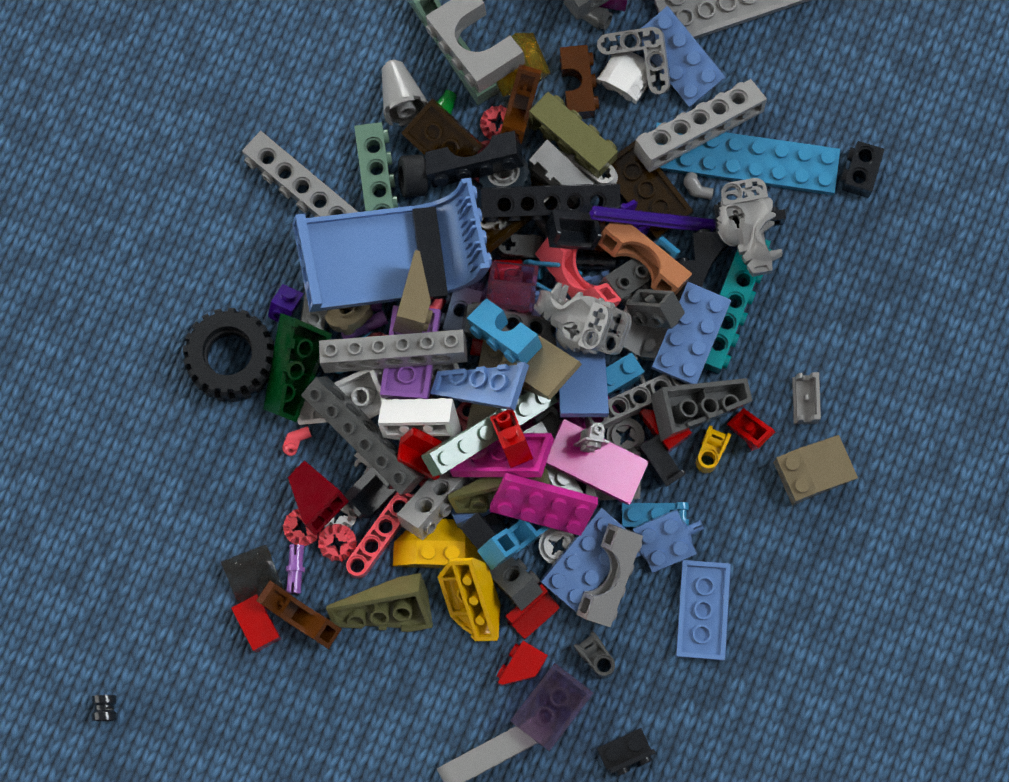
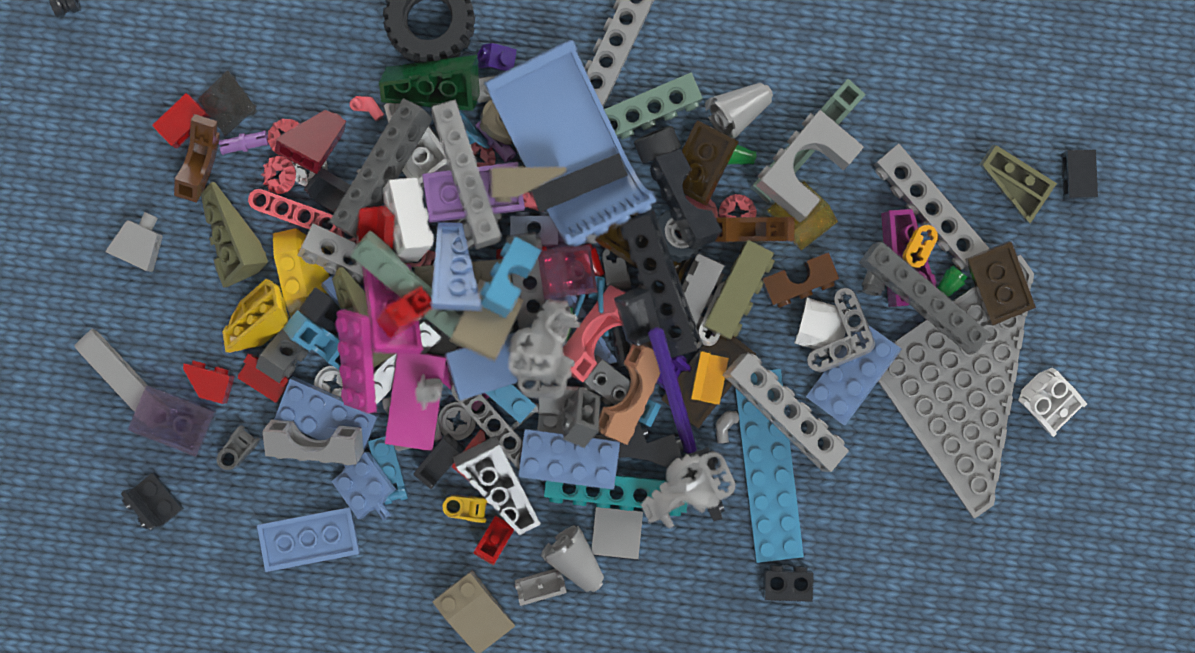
camera: 75 degrees right, 10 degrees up
(364, 699) = (137, 243): none -> light grey torso
(648, 187) = (709, 378): none -> light orange panel
(773, 314) = (617, 533): none -> light grey tile
(787, 358) = (574, 559): none -> light grey cone

